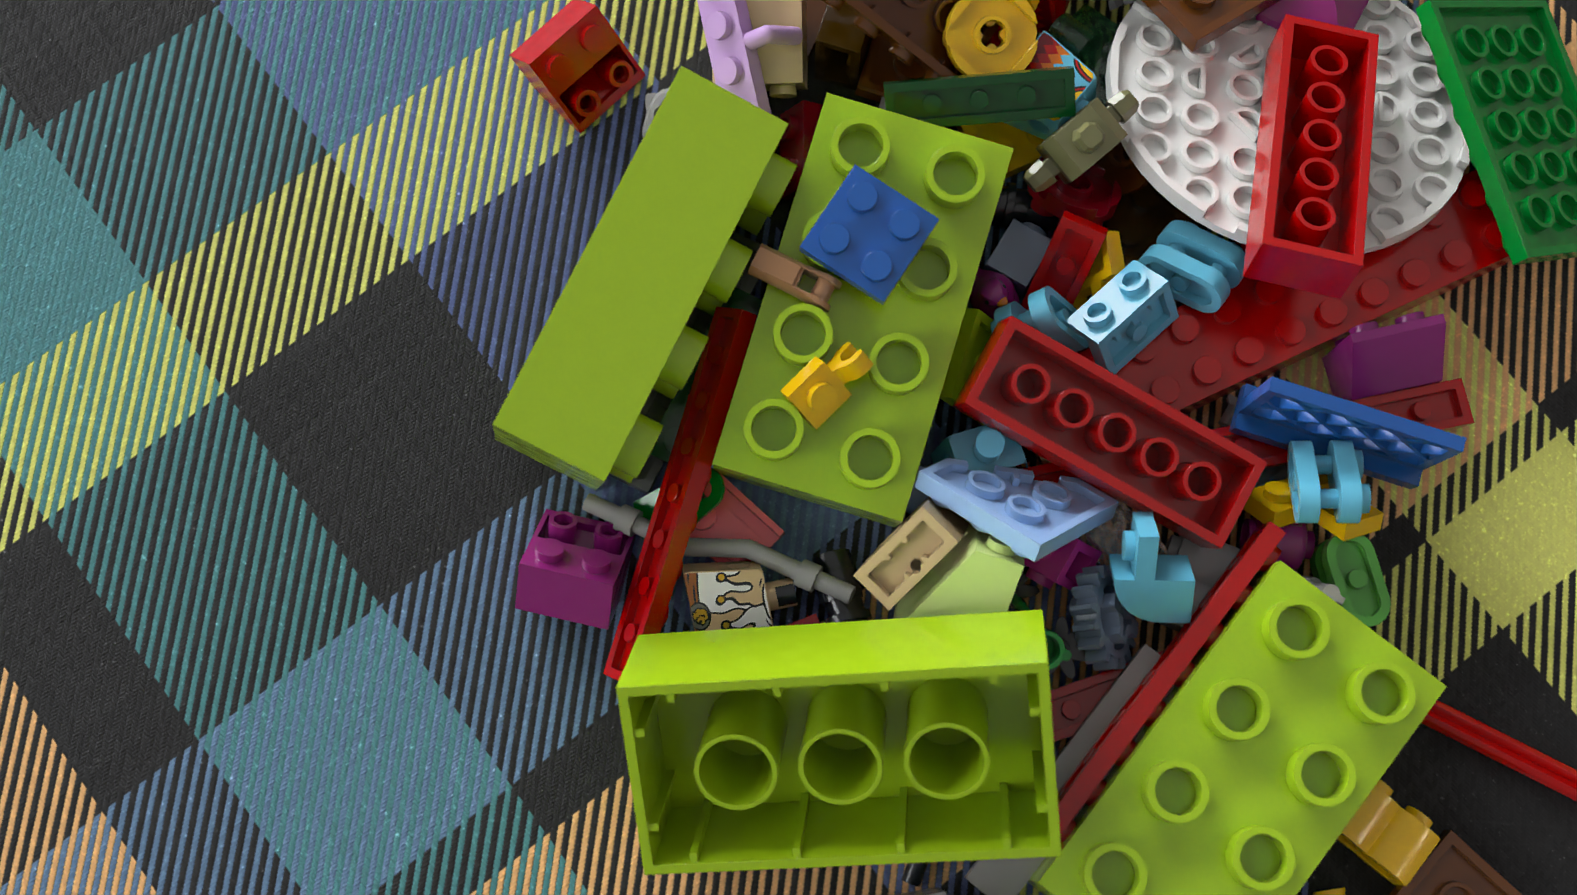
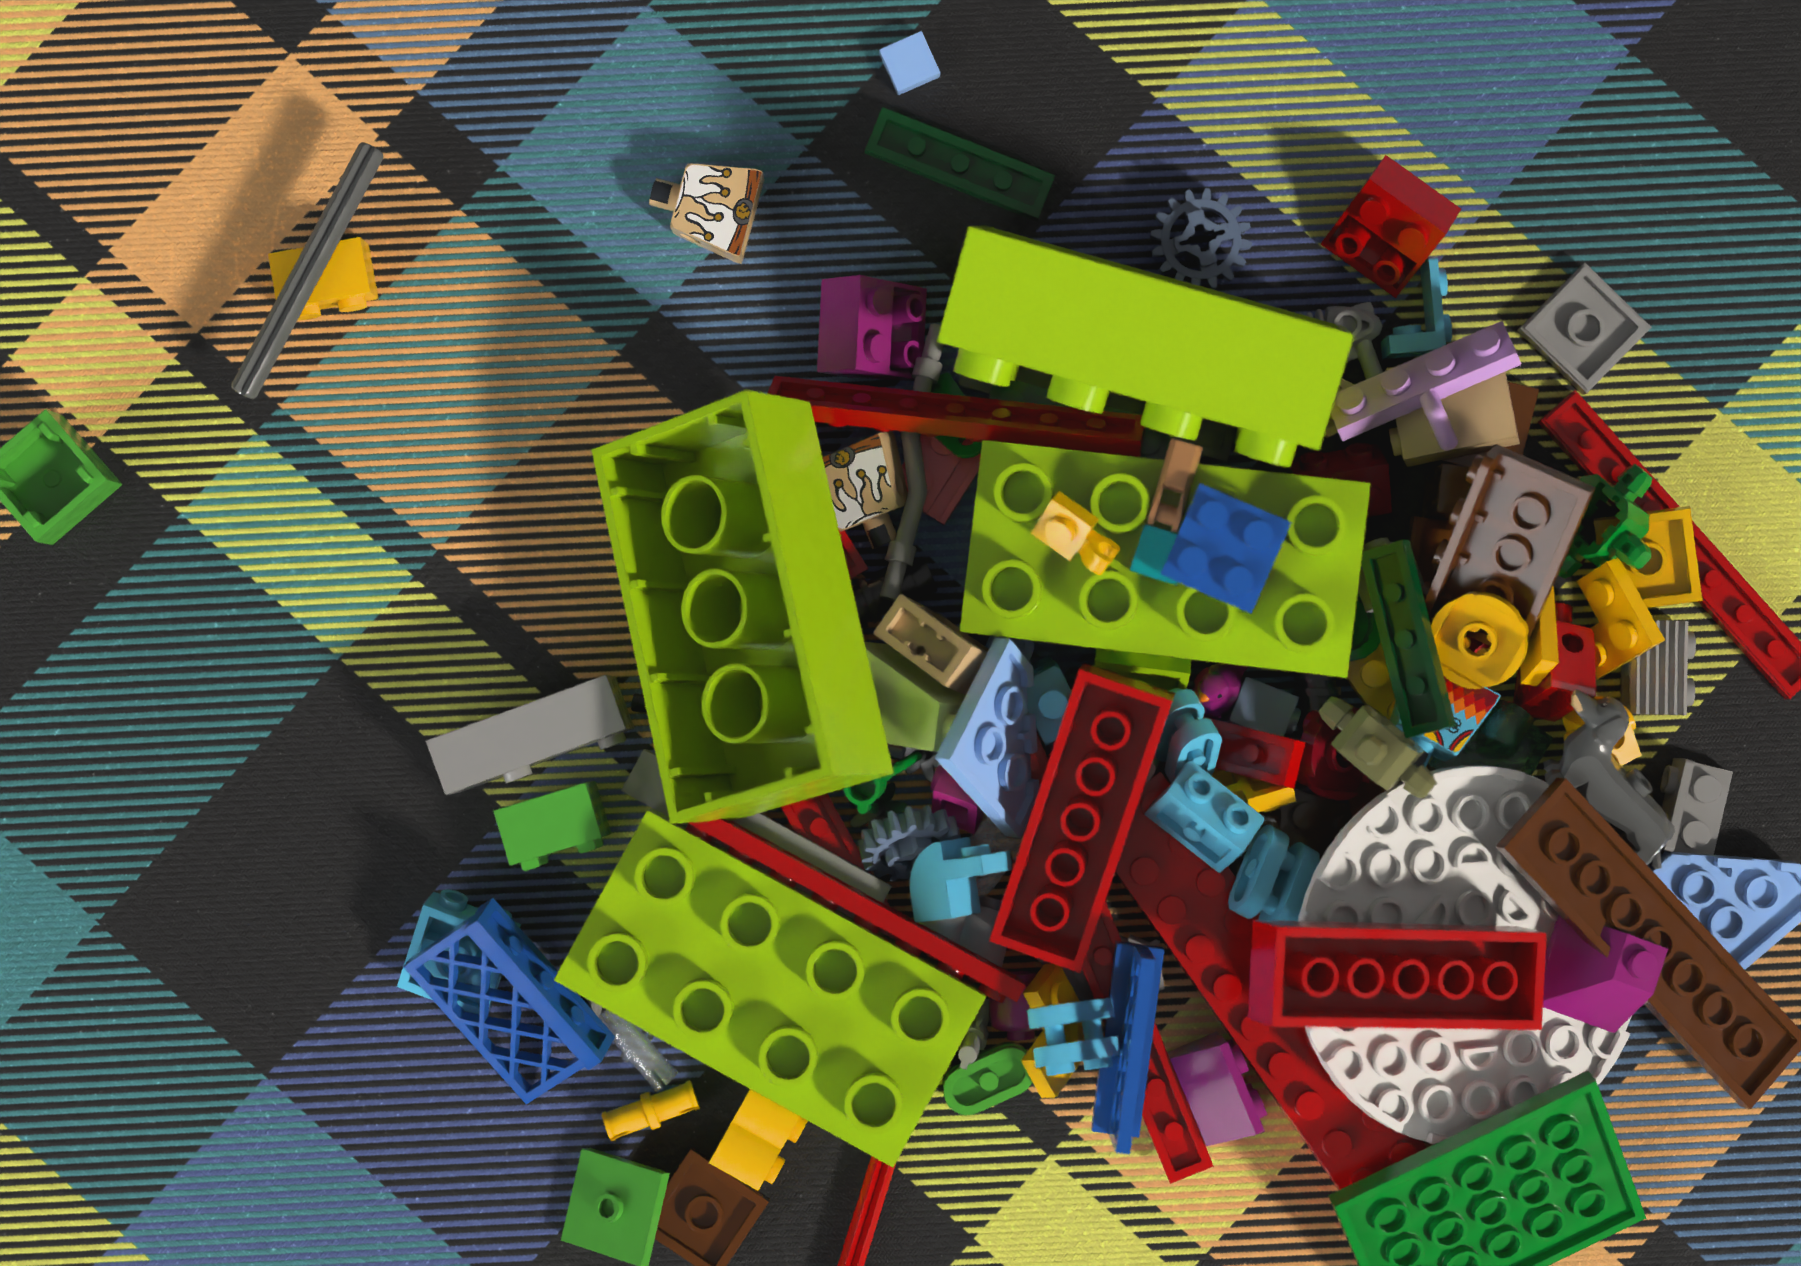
camera: 80 degrees right, 10 degrees up
(319, 486) = (909, 63): none -> light blue tile
(417, 708) = (712, 206): none -> torso
(429, 453) = (959, 164): none -> dark green plate
(536, 236) = (1195, 219): none -> sand blue gear
(679, 40) = (1409, 340): none -> medium azure bracket
(858, 310) = (1153, 552): none -> teal tile

